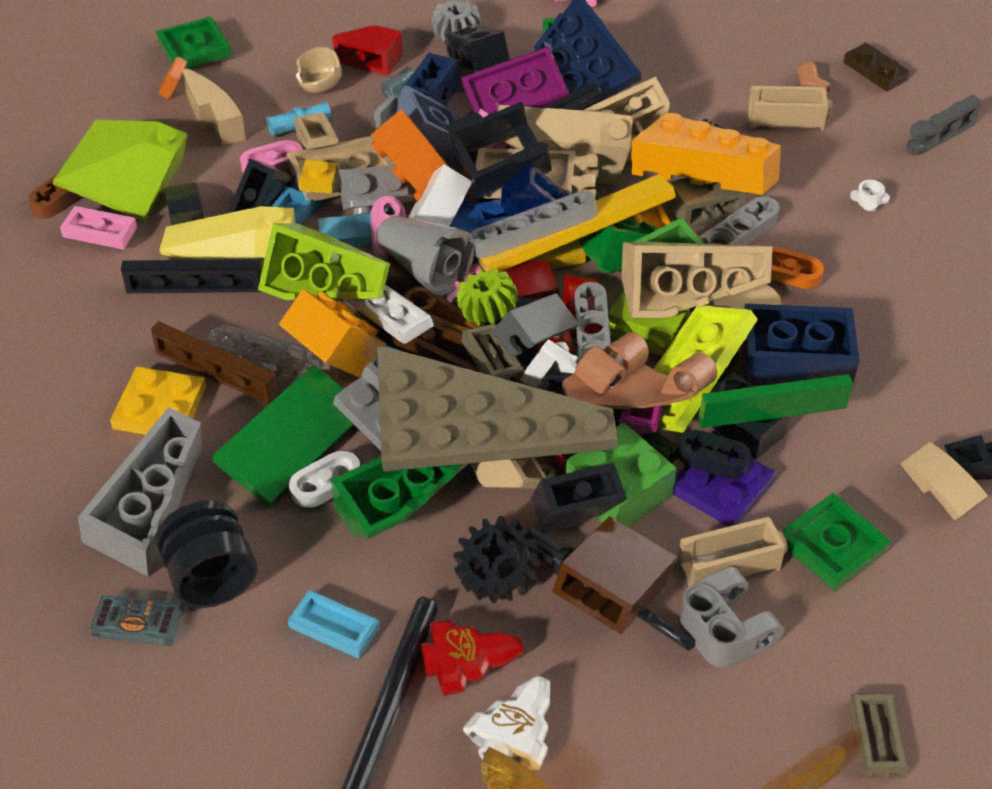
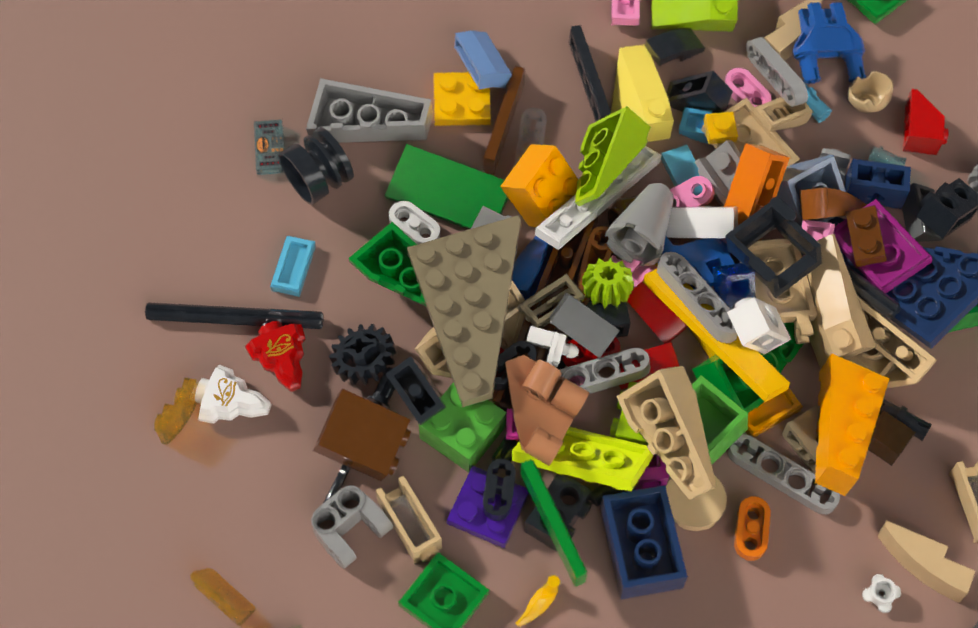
camera: 75 degrees right, 15 degrees up
(121, 362) = (482, 59): none -> medium blue piece
(245, 78) = (827, 36): none -> blue connector
(262, 117) = (777, 72): none -> light grey beam
(452, 109) = (827, 203): none -> dark orange piece
(503, 89) = (866, 236): none -> reddish brown plate
(594, 171) = (758, 325): none -> white brick
(842, 455) = (540, 601): none -> yellow bar
(844, 155) = (926, 561): none -> tan slope

